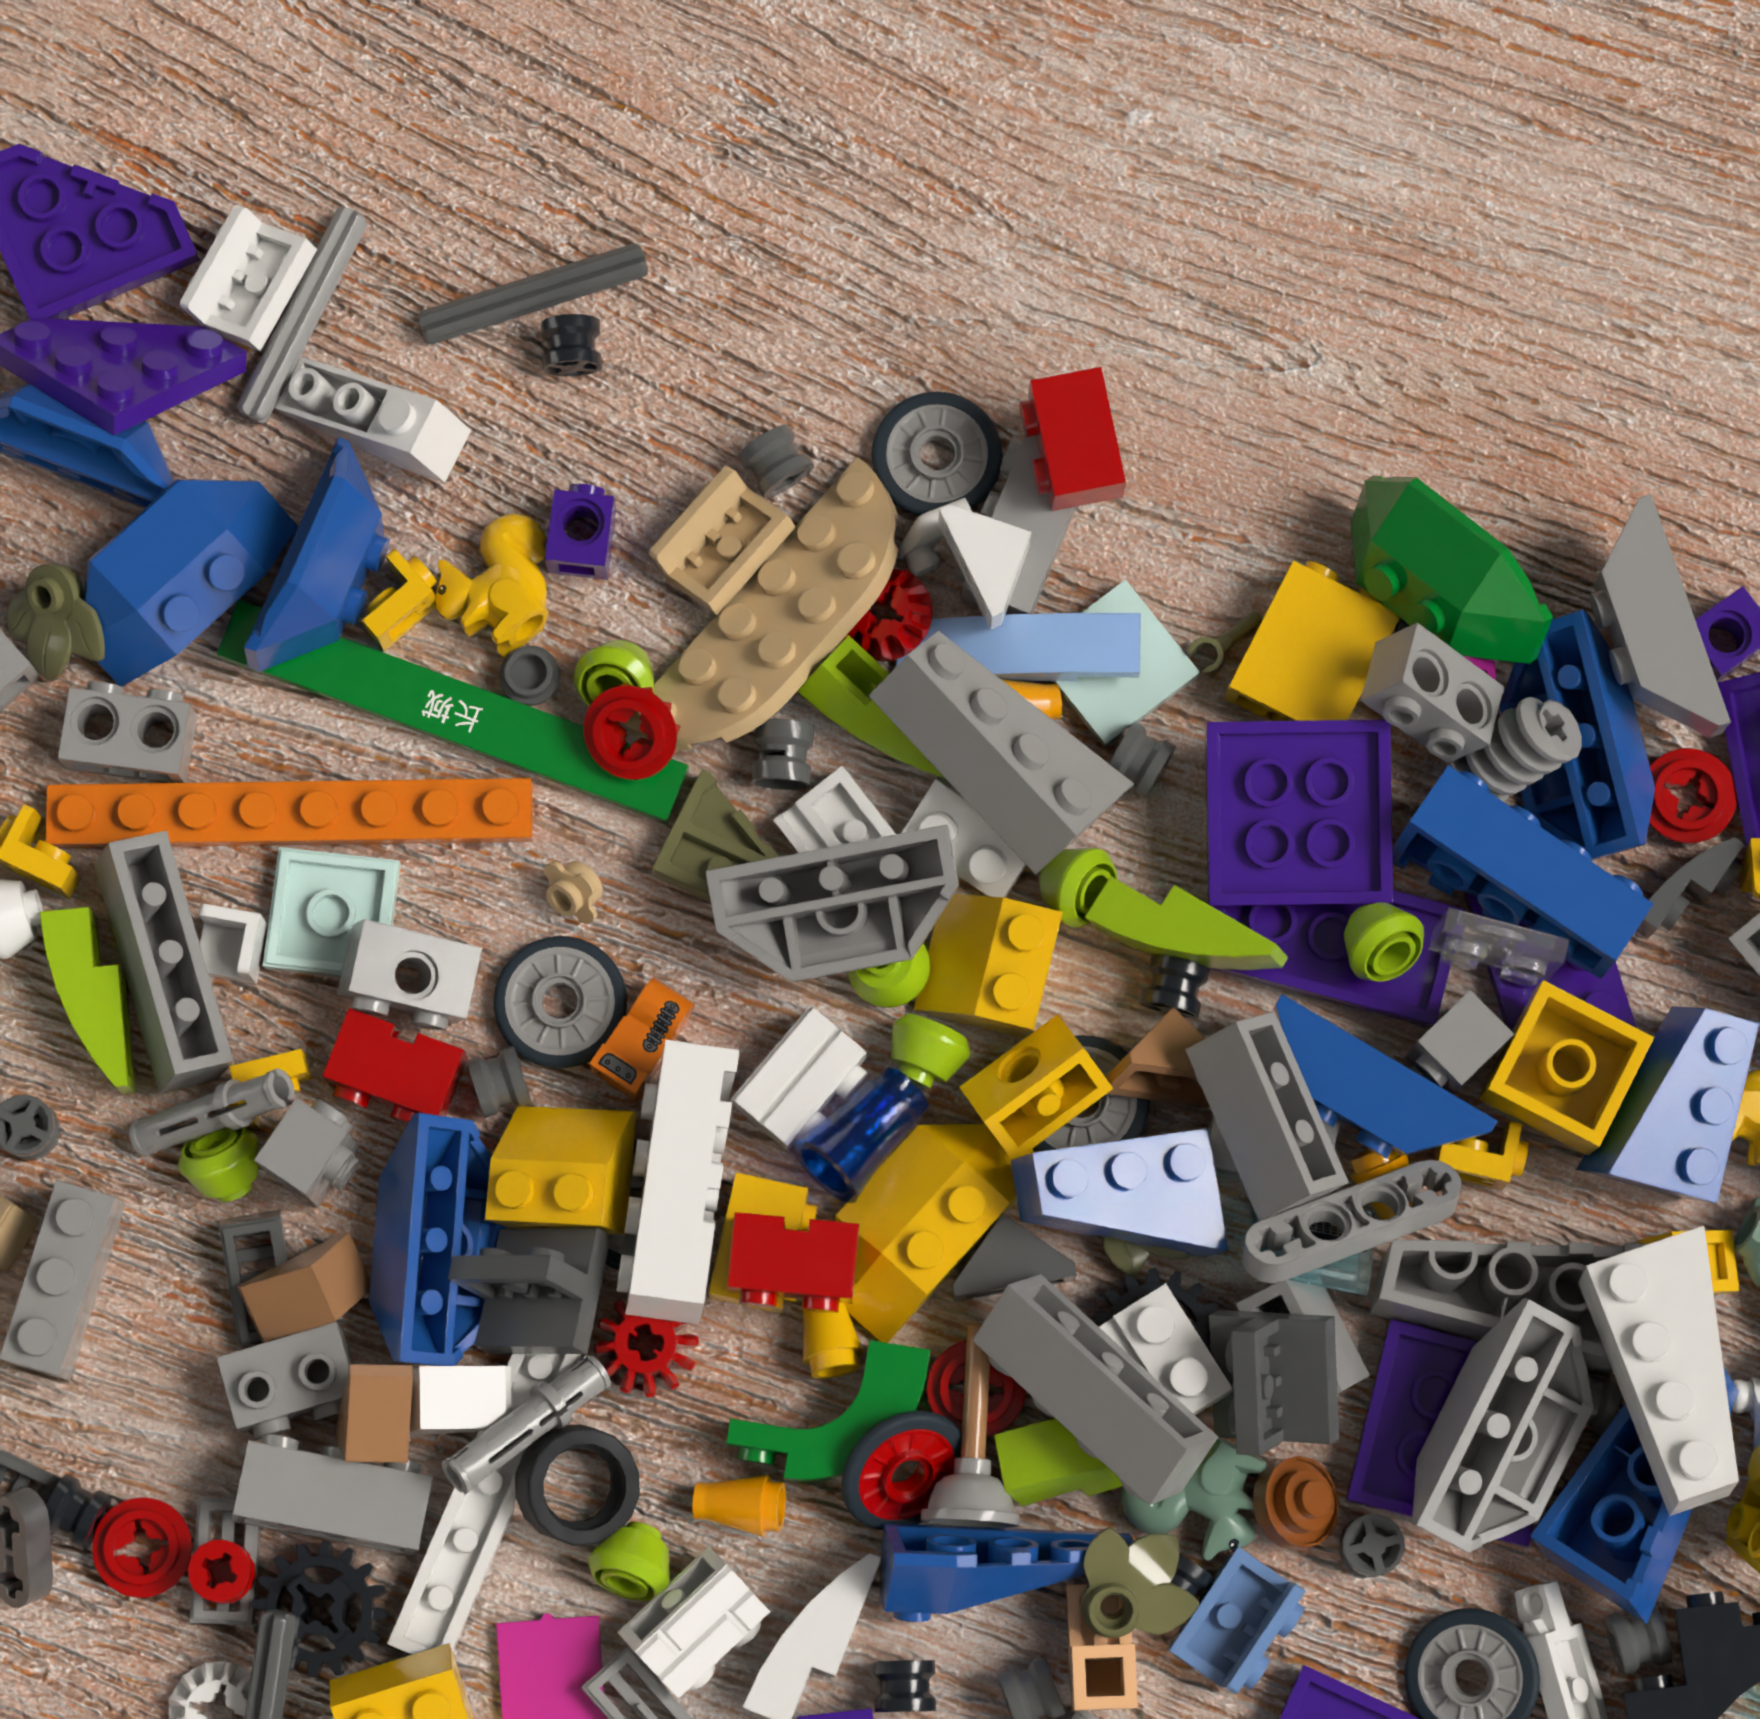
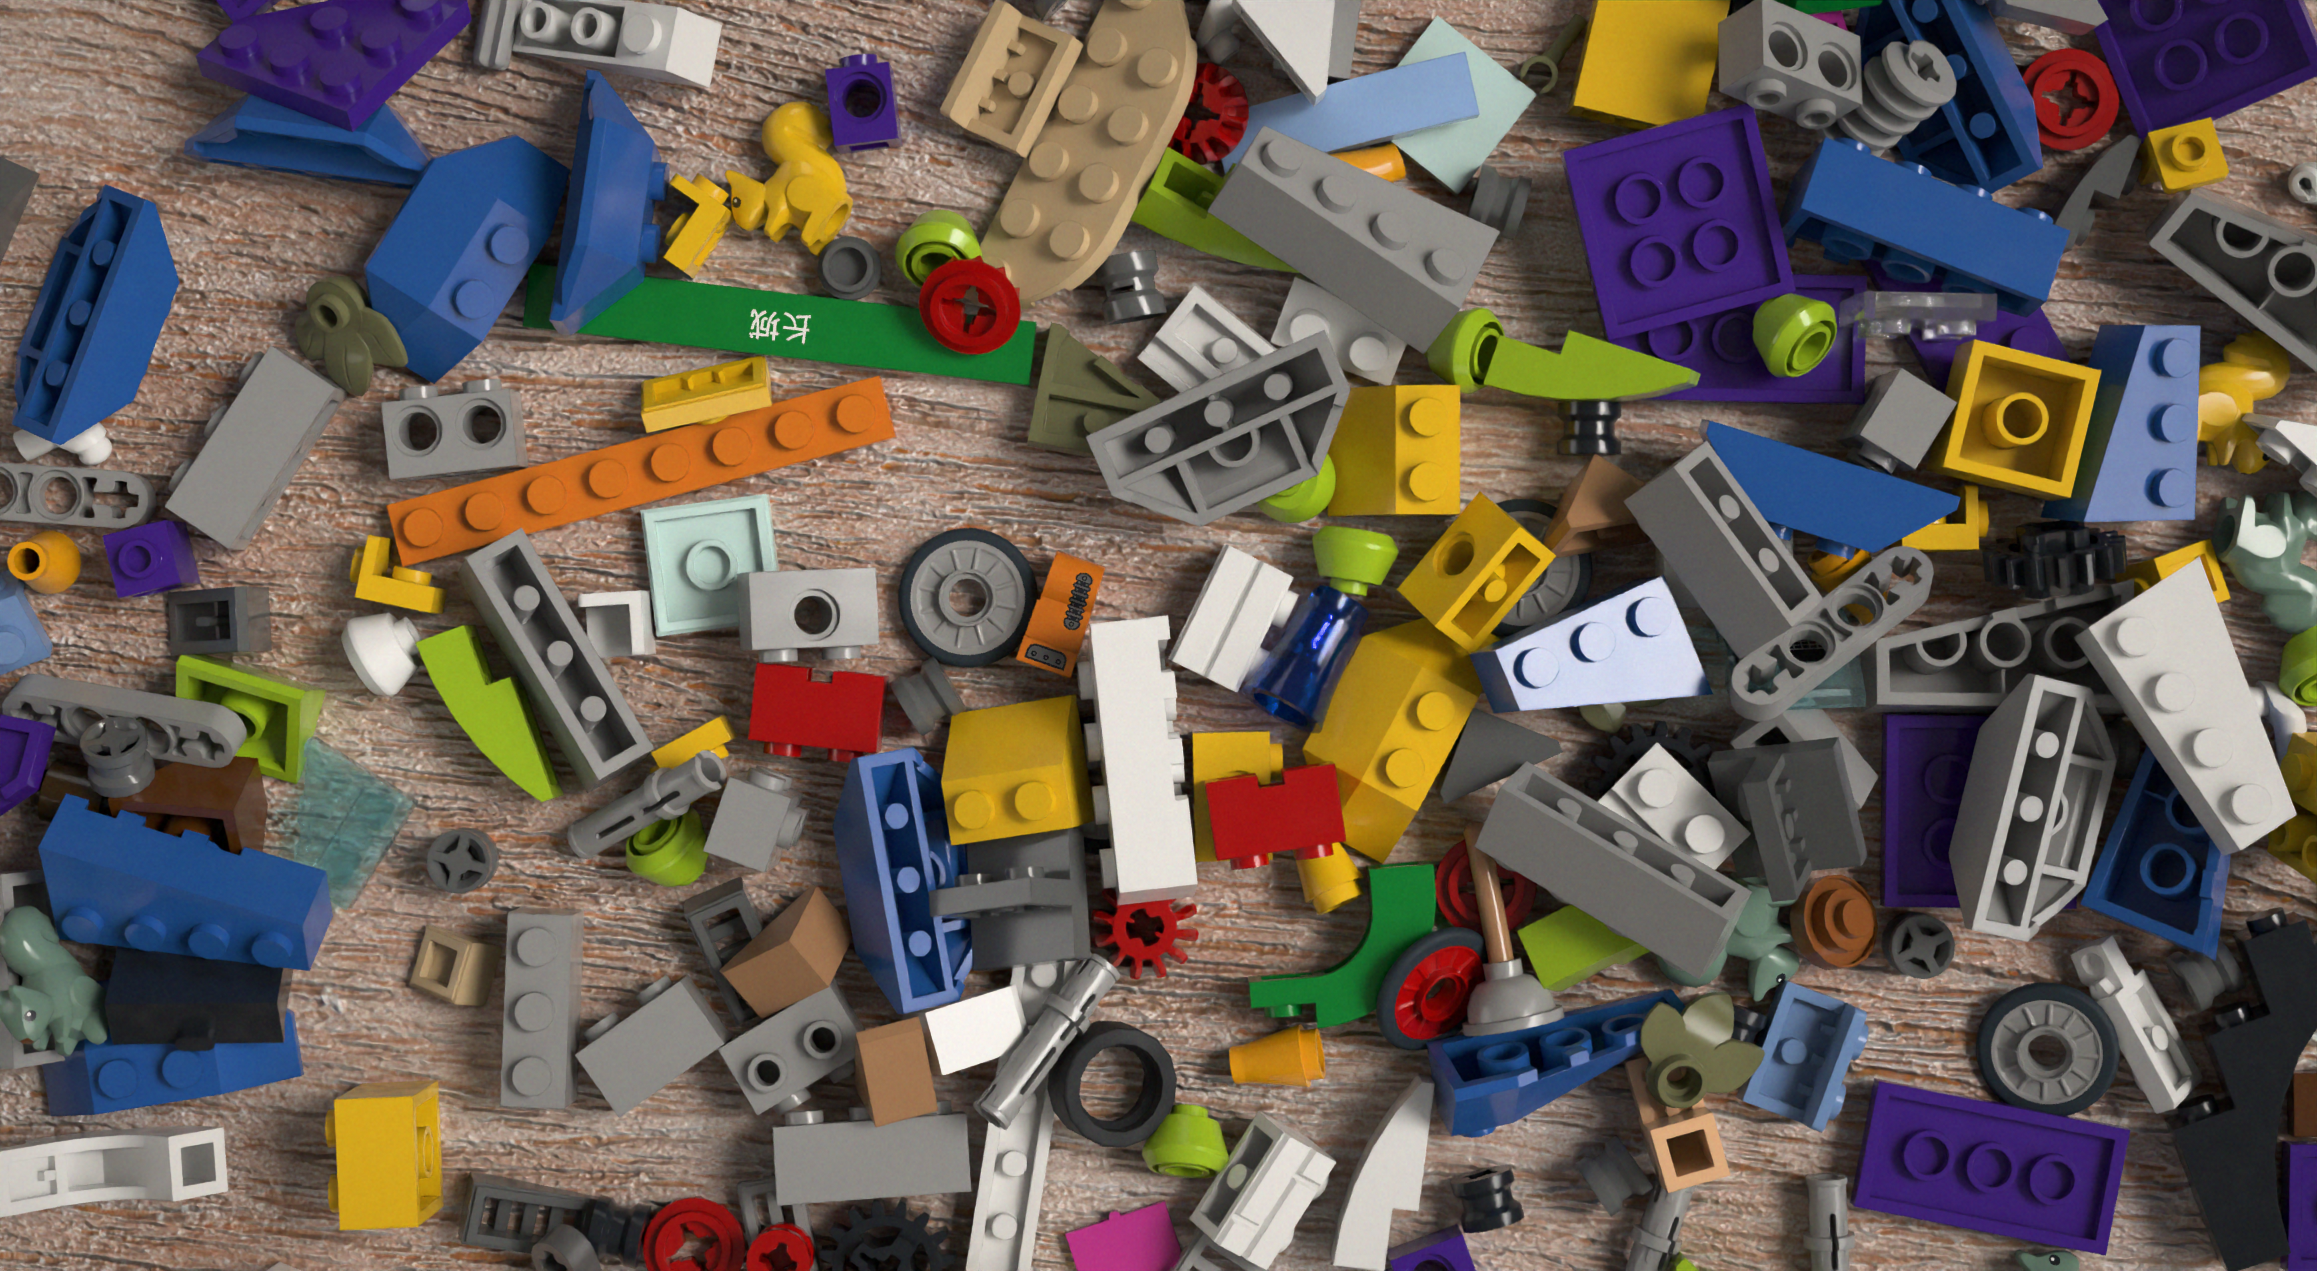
camera: 15 degrees left, 10 degrees up
(155, 1341) = (653, 1044): none -> light grey brick
(367, 755) = (705, 394): none -> yellow plate
(573, 890) = (952, 481): tan plate -> none
(1578, 1207) = (2054, 558): none -> black gear

